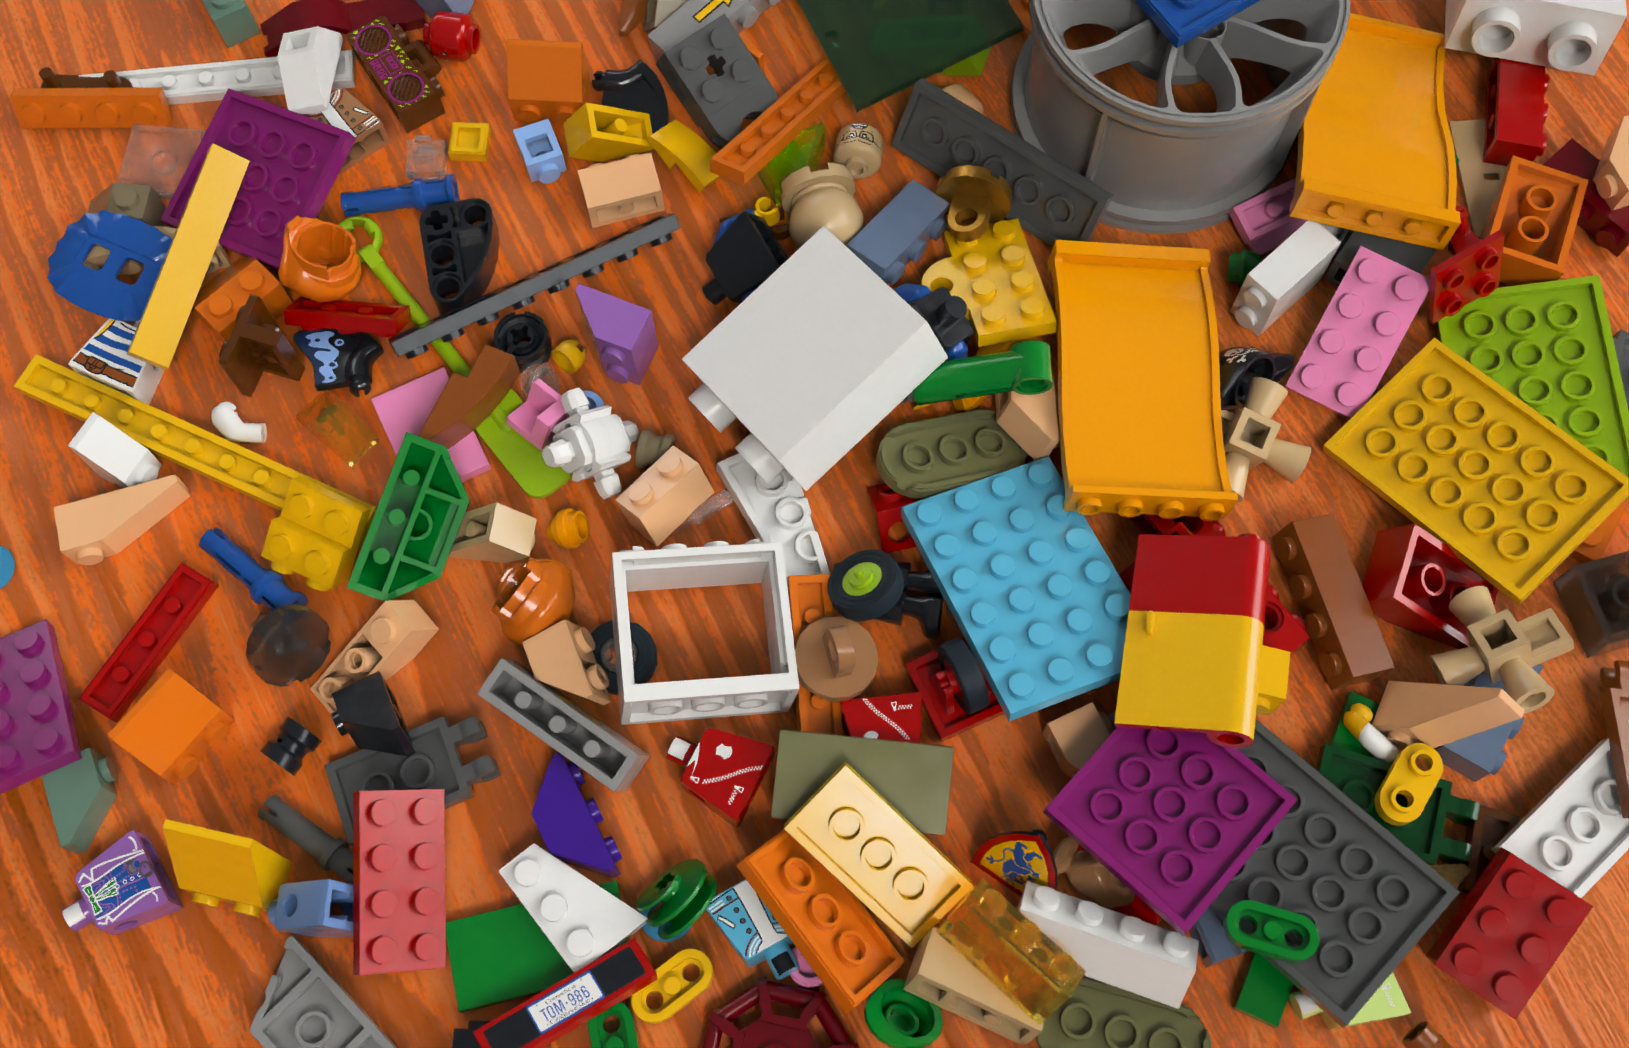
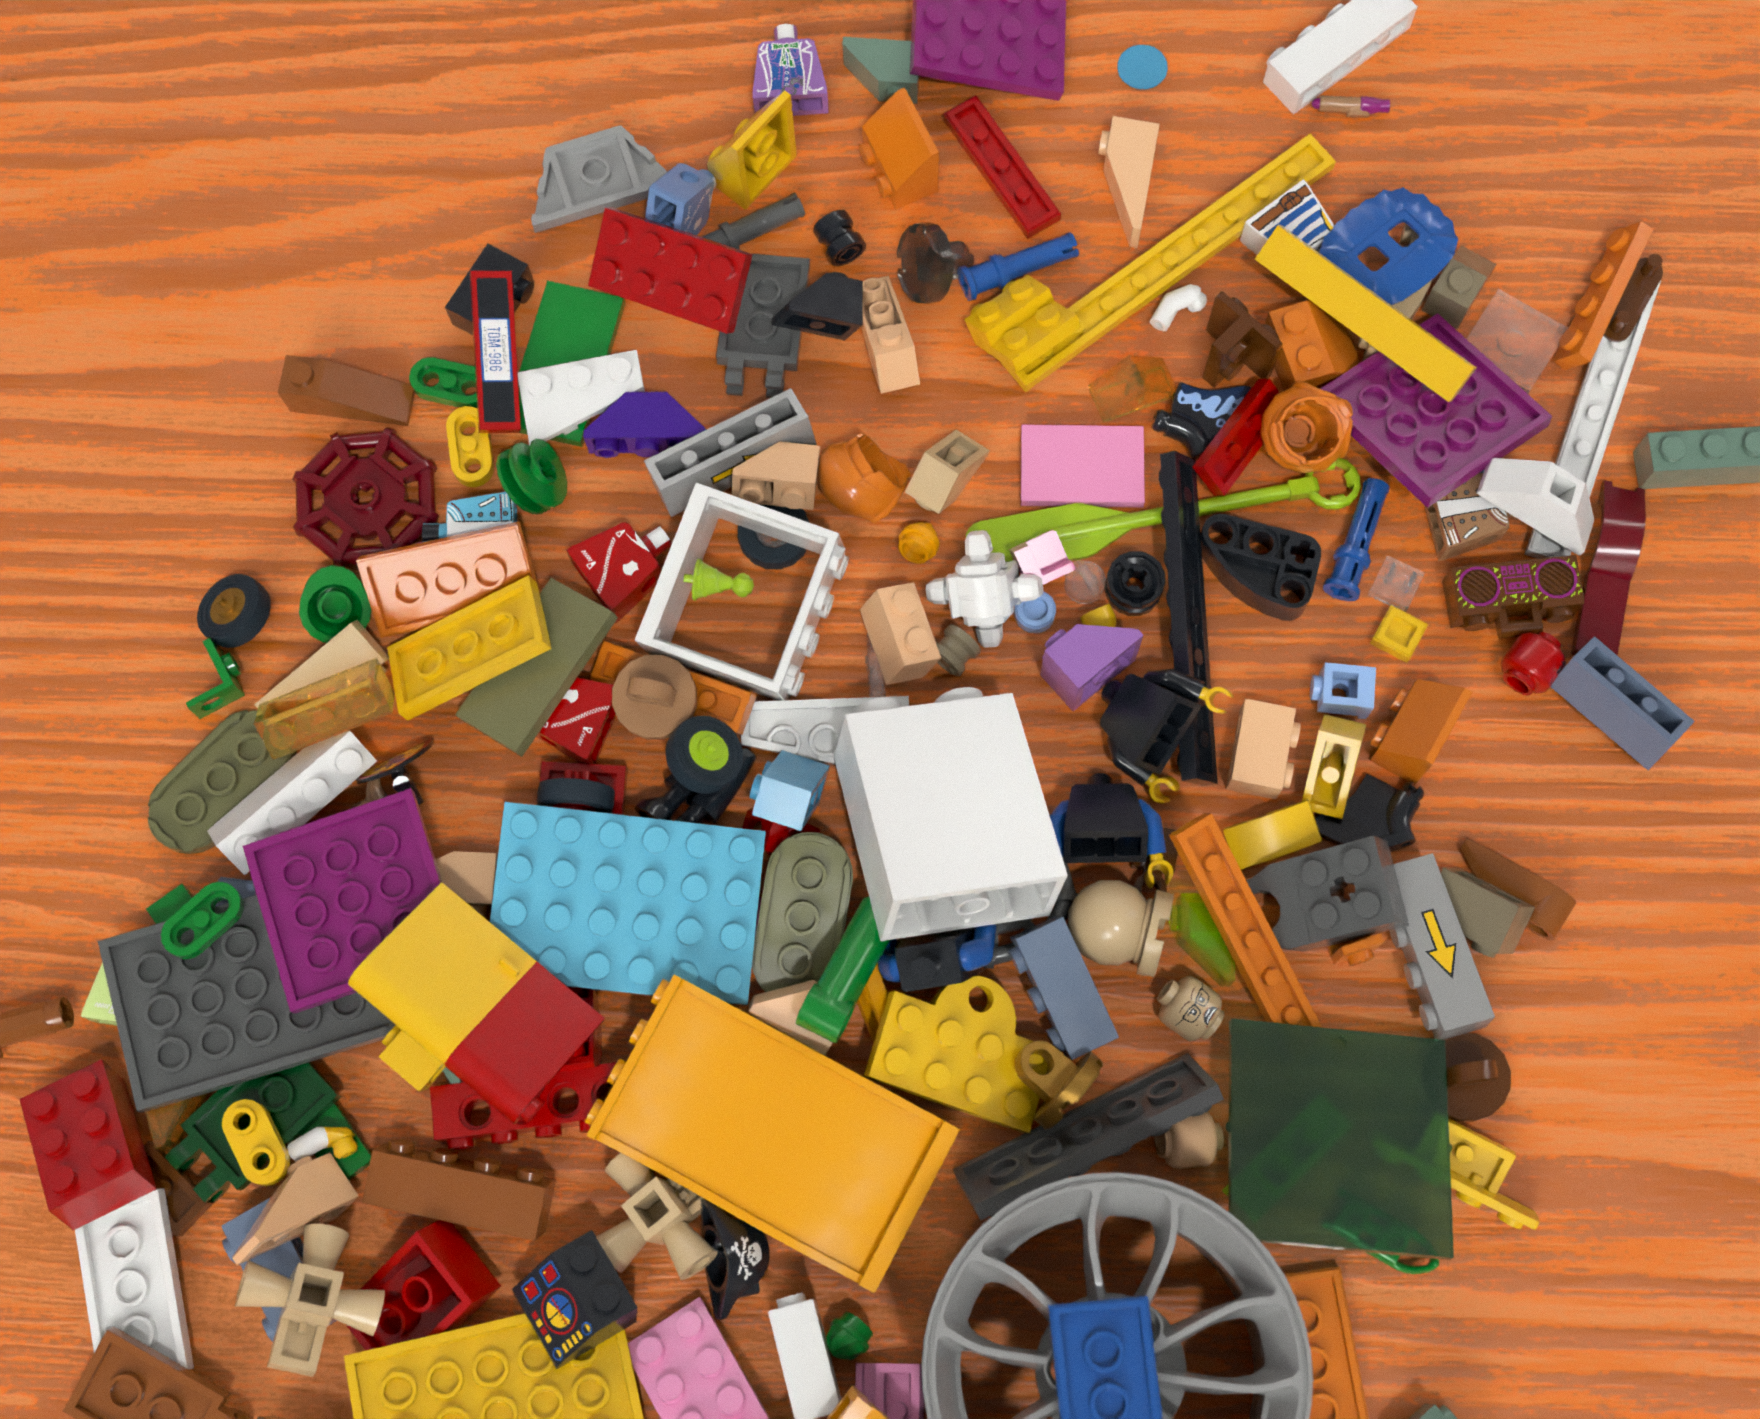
camera: 120 degrees right, 5 degrees up
(114, 453) = (1186, 188): white slope -> none
(412, 522) = (984, 401): green wedge -> none
(471, 399) = (1089, 503): dark orange slope -> none
(642, 266) = (1149, 720): none -> black torso
(714, 640) = (709, 581): none -> lime piece
(854, 506) = (789, 789): none -> dark azure brick
(1355, 457) = (575, 1300): none -> black slope

